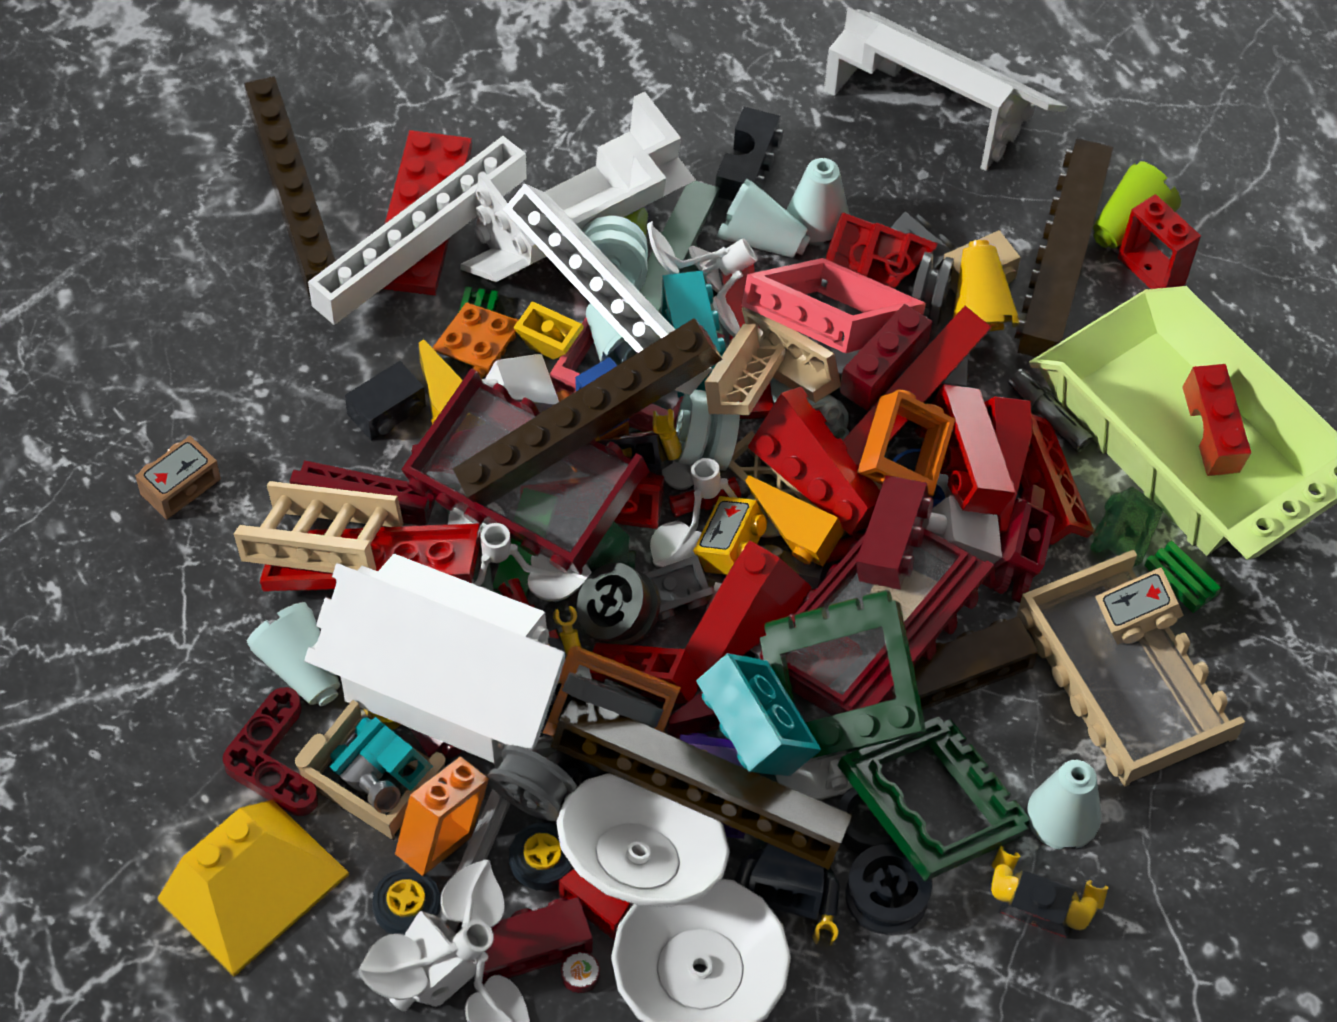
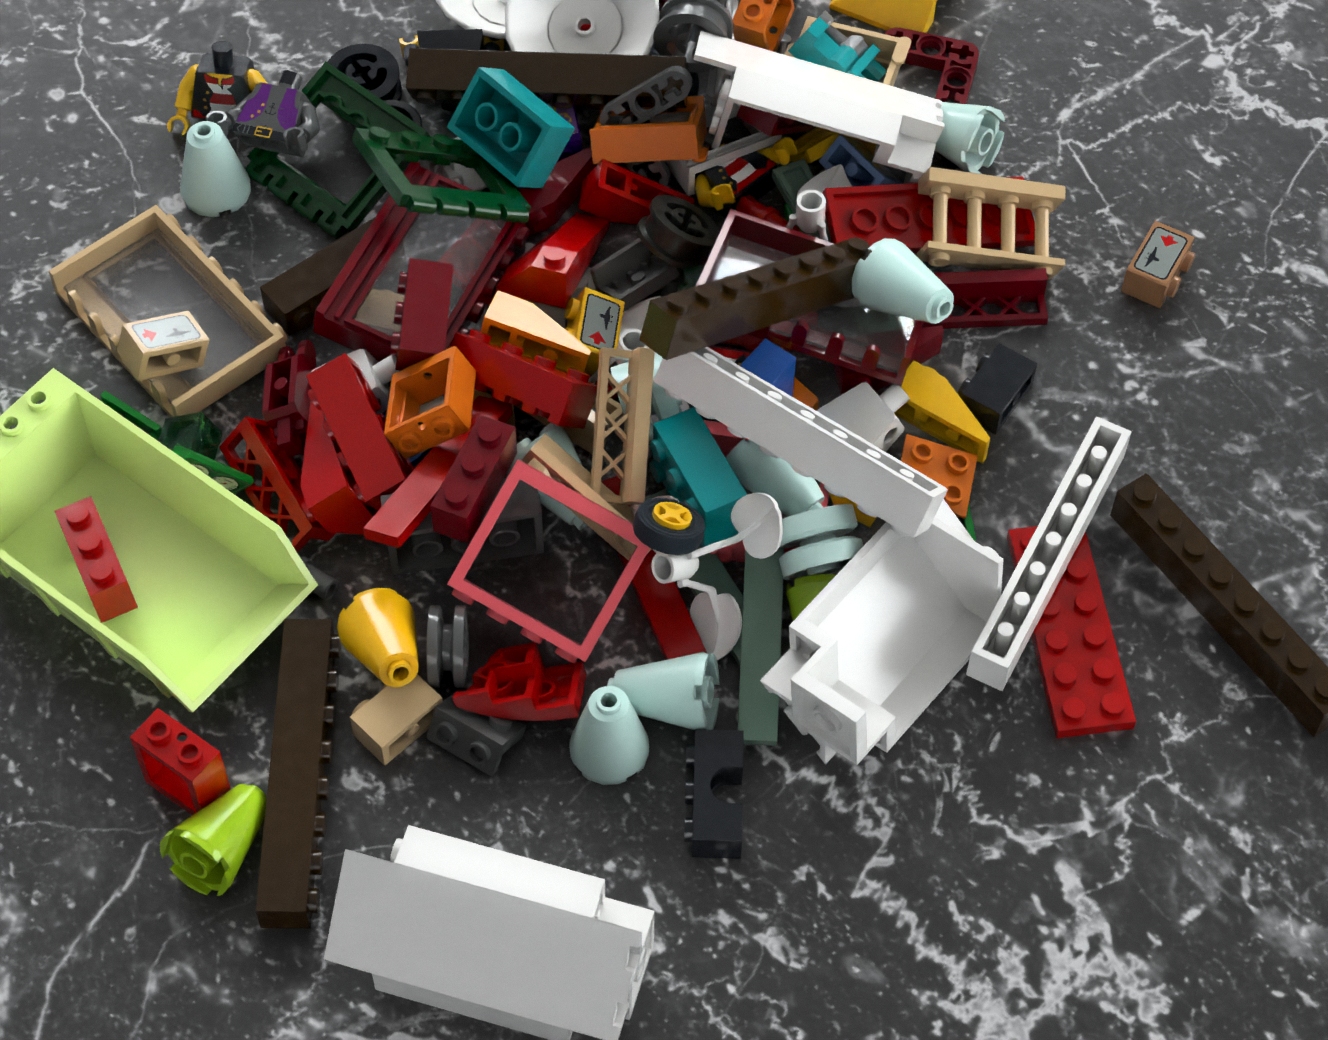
camera: 165 degrees right, 0 degrees up
(444, 427) = (900, 284): none -> light aqua cone
(724, 265) = (668, 526): none -> black wheel
(995, 823) = (272, 117): none -> dark grey torso
(1108, 477) = (224, 475): none -> green slope

